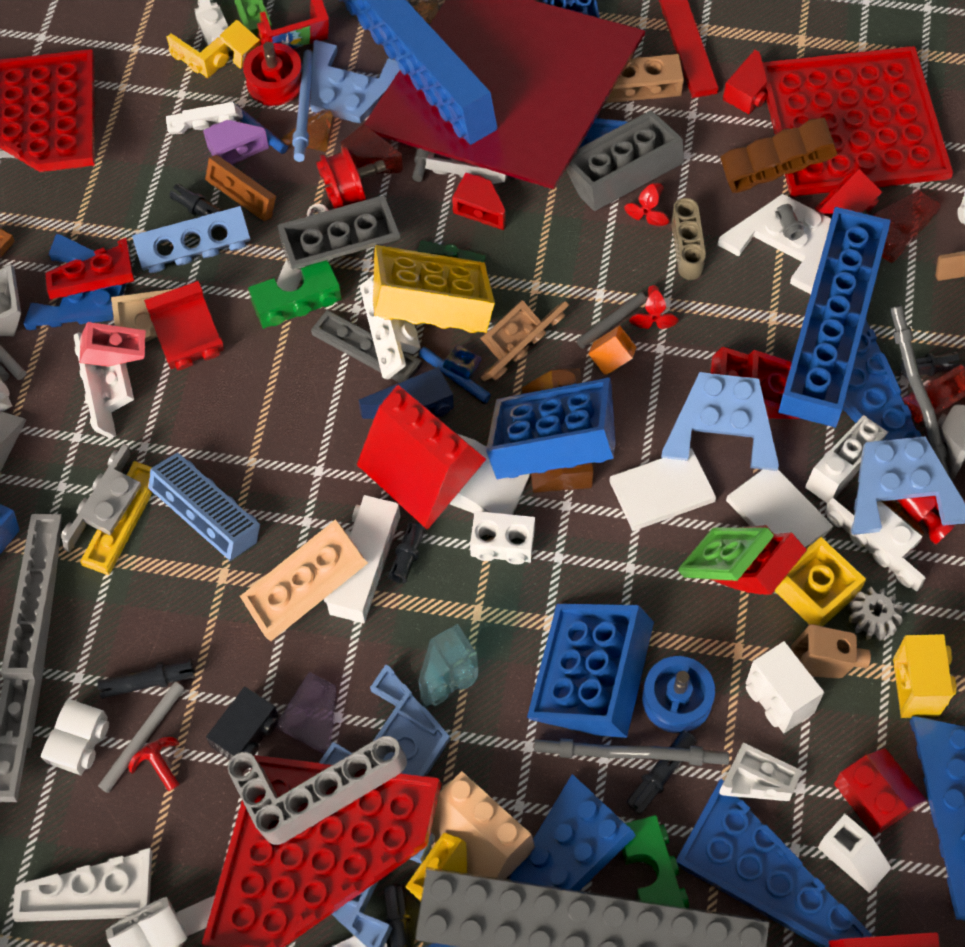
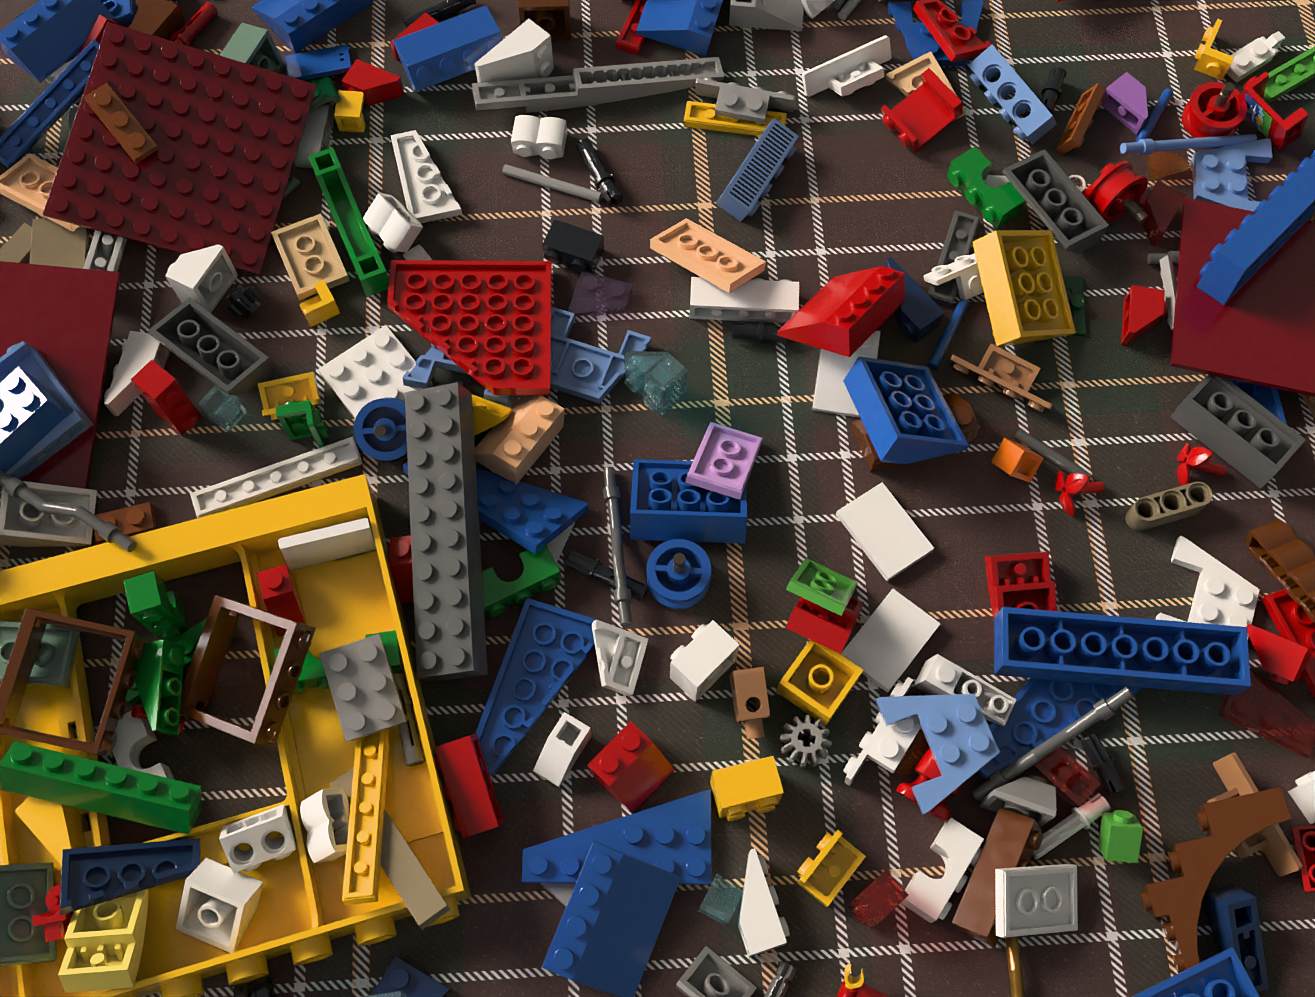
camera: 75 degrees right, 5 degrees up
(111, 344) = (880, 57): coral slope -> none
(152, 753) = (537, 190): red plant -> none
(202, 117) = (1143, 71): white hinge -> none
(240, 41) = (1239, 72): yellow panel -> none
(313, 790) = (499, 286): light grey beam -> none
(462, 362) = (961, 336): clear blue tile -> none
(503, 529) = (798, 403): white brick -> none
(557, 619) = (724, 460): none -> lavender tile
(724, 407) = (980, 566): medium blue wing -> none
(791, 226) = (1215, 599): dark grey pin -> none

